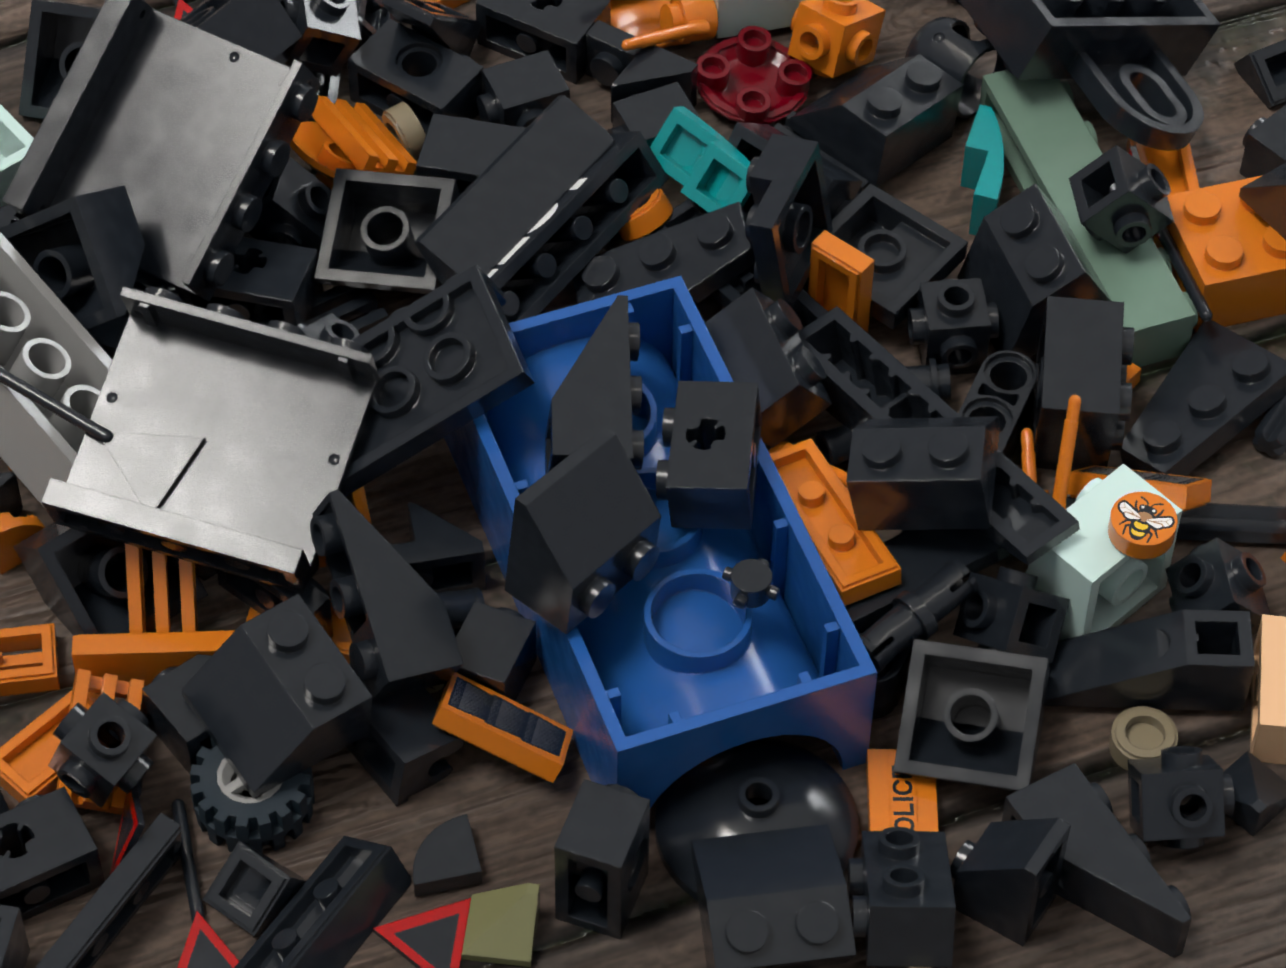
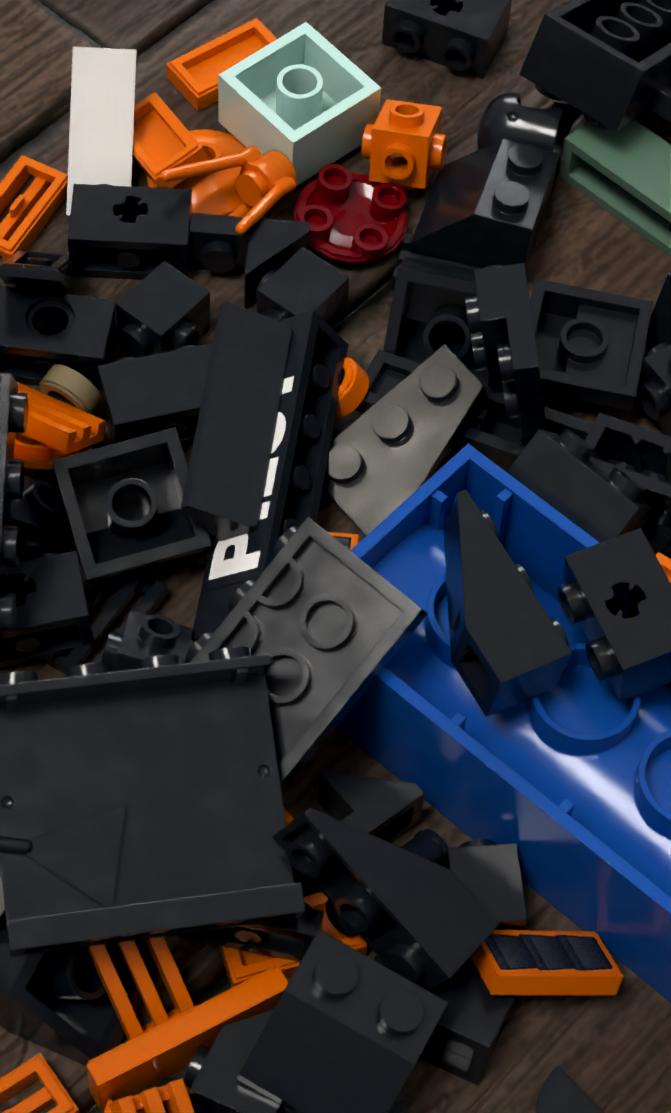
camera: 30 degrees left, 5 degrees up
(582, 534) = (581, 758): black slope -> none
(701, 161) = (384, 318): teal slope -> none
(841, 277) = (578, 381): orange tile -> none
(983, 165) = (610, 221): teal slope -> none

